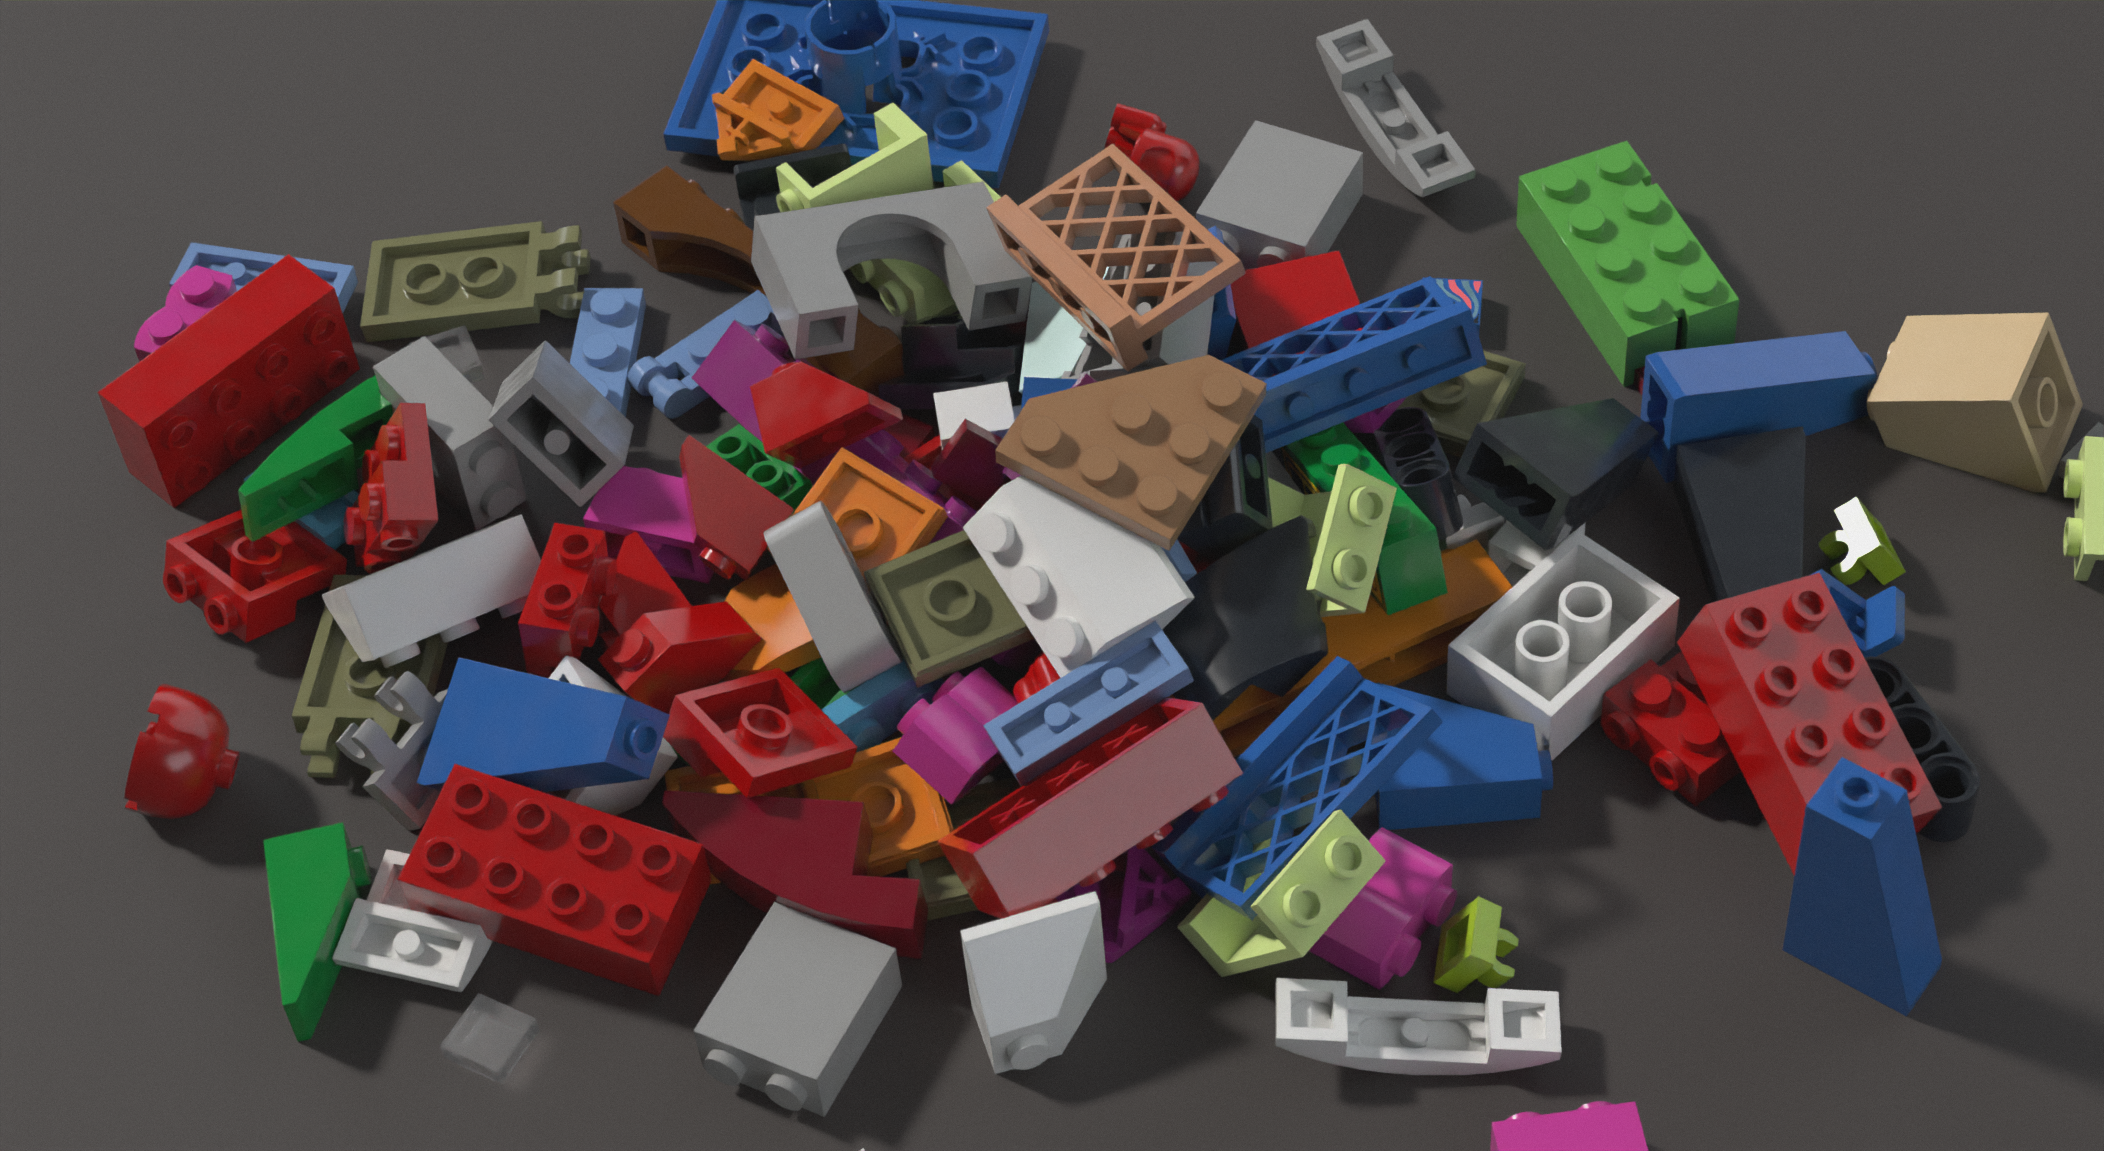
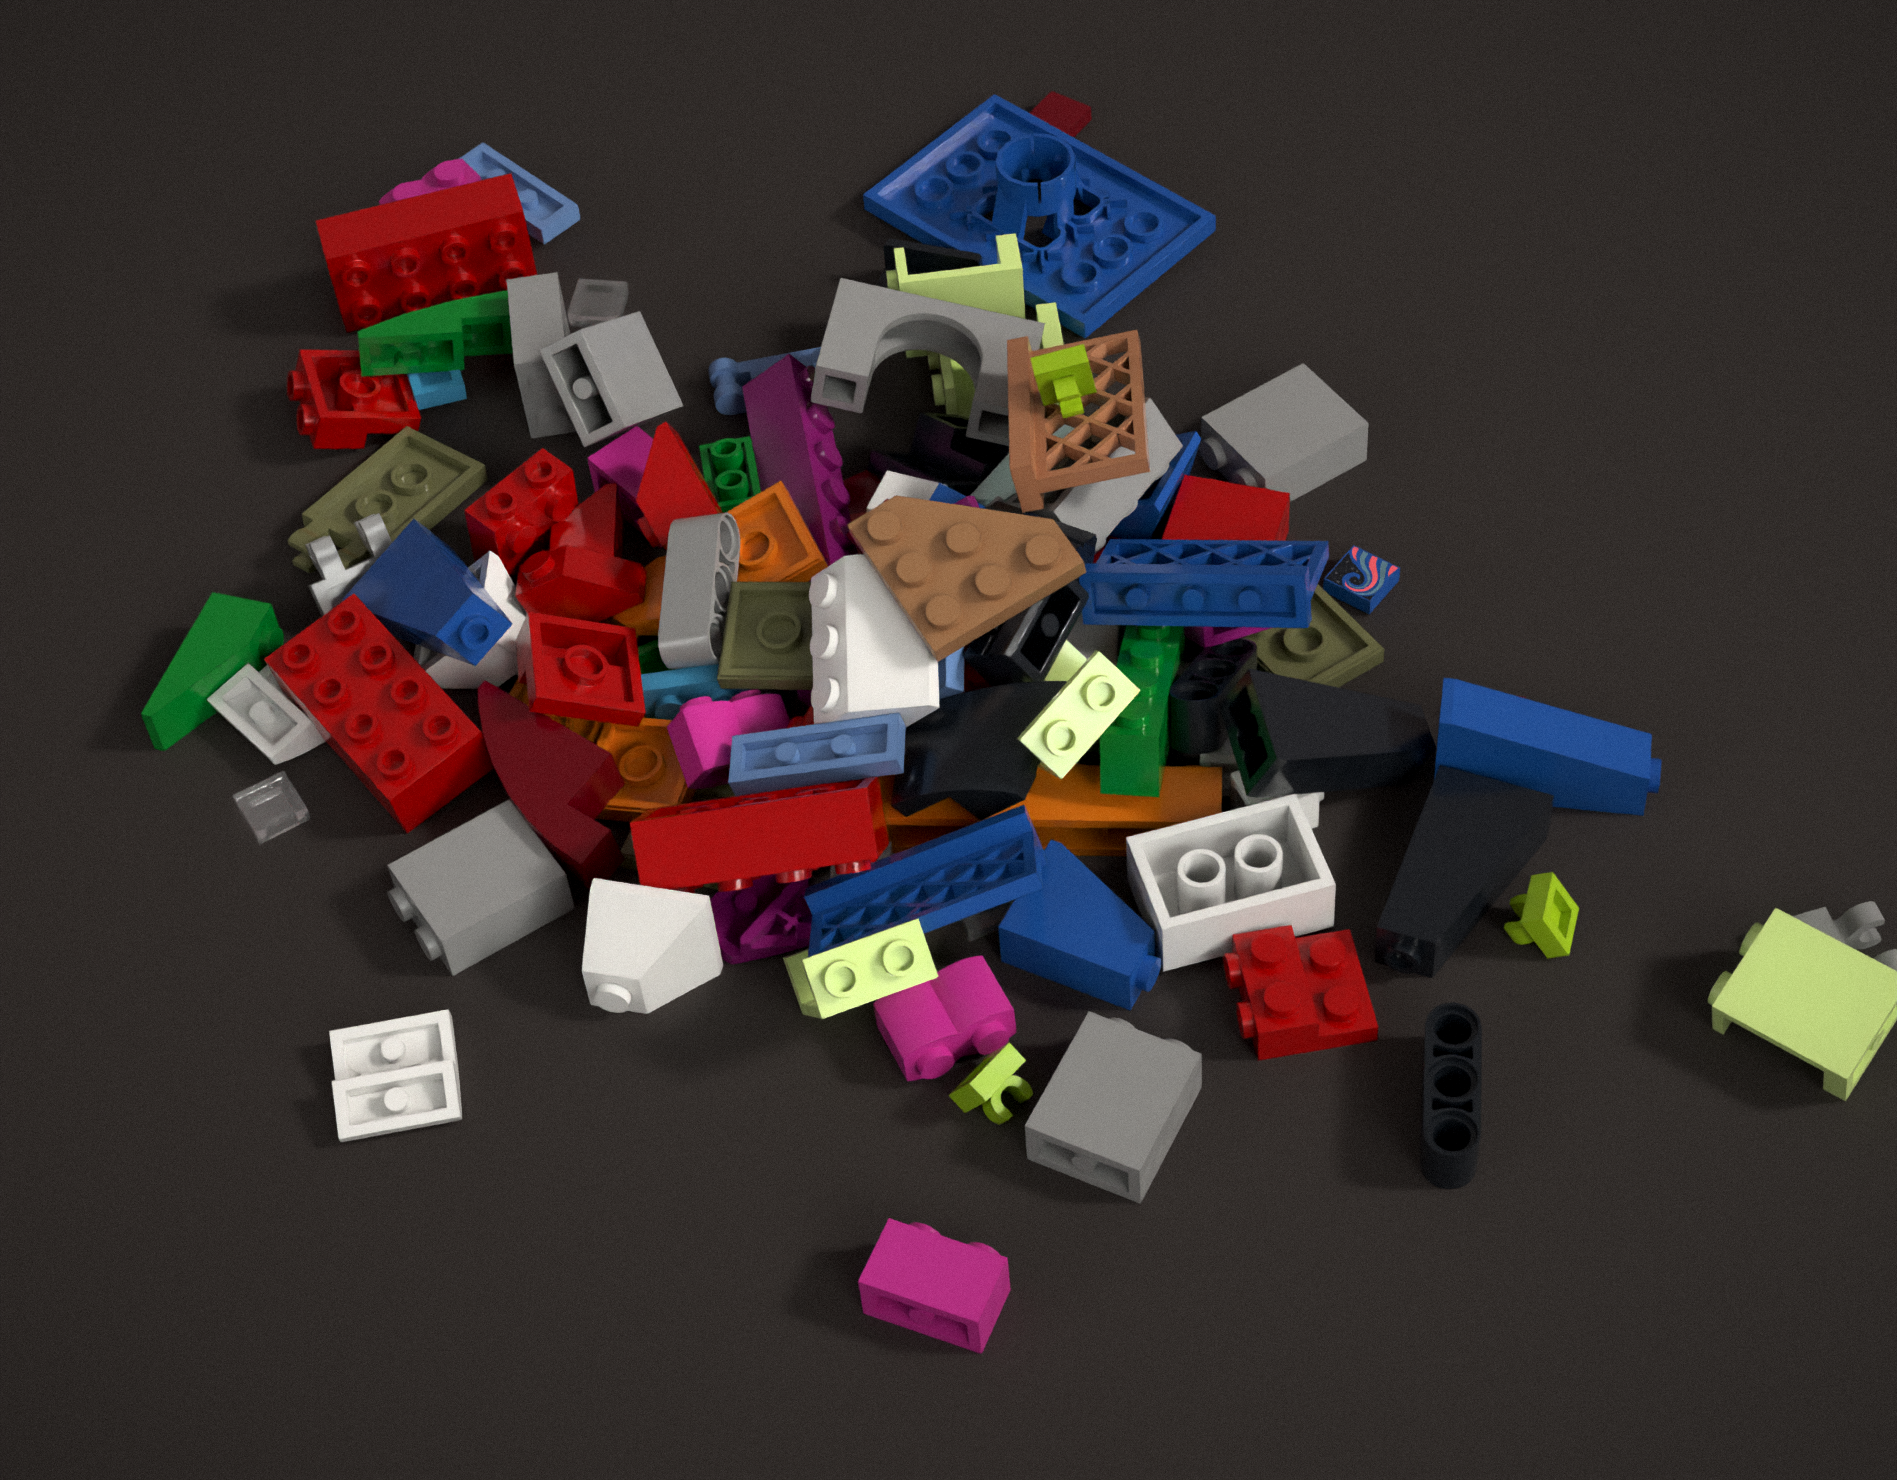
camera: 30 degrees right, 0 degrees up
(180, 756) = (207, 507): red cylinder -> none
(397, 494) = (460, 387): red plate -> none
(437, 592) = (442, 464): white slope -> none
(472, 280) = (656, 250): olive tile -> none
(609, 340) = (716, 334): medium blue plate -> none
(685, 231) = (815, 262): reddish brown arch -> none
(771, 116) = (942, 212): orange slope -> none
(814, 414) = (785, 447): red slope -> none
(1095, 218) = (1064, 378): none -> lime tile
(1164, 158) = (1211, 362): red piece -> none
(1387, 114) = (1428, 400): light grey slope -> none
(1417, 1035) = (897, 1124): white slope -> none
(1610, 911) = (1114, 1106): none -> light grey brick
(1624, 258) = (1524, 596): bright green piece -> none
(1797, 701) = (1364, 1033): red brick -> none
(1863, 890) = (1294, 1182): blue slope -> none
(1874, 622) = (1481, 969): blue bracket -> none
(1979, 395) = (1734, 838): tan slope -> none

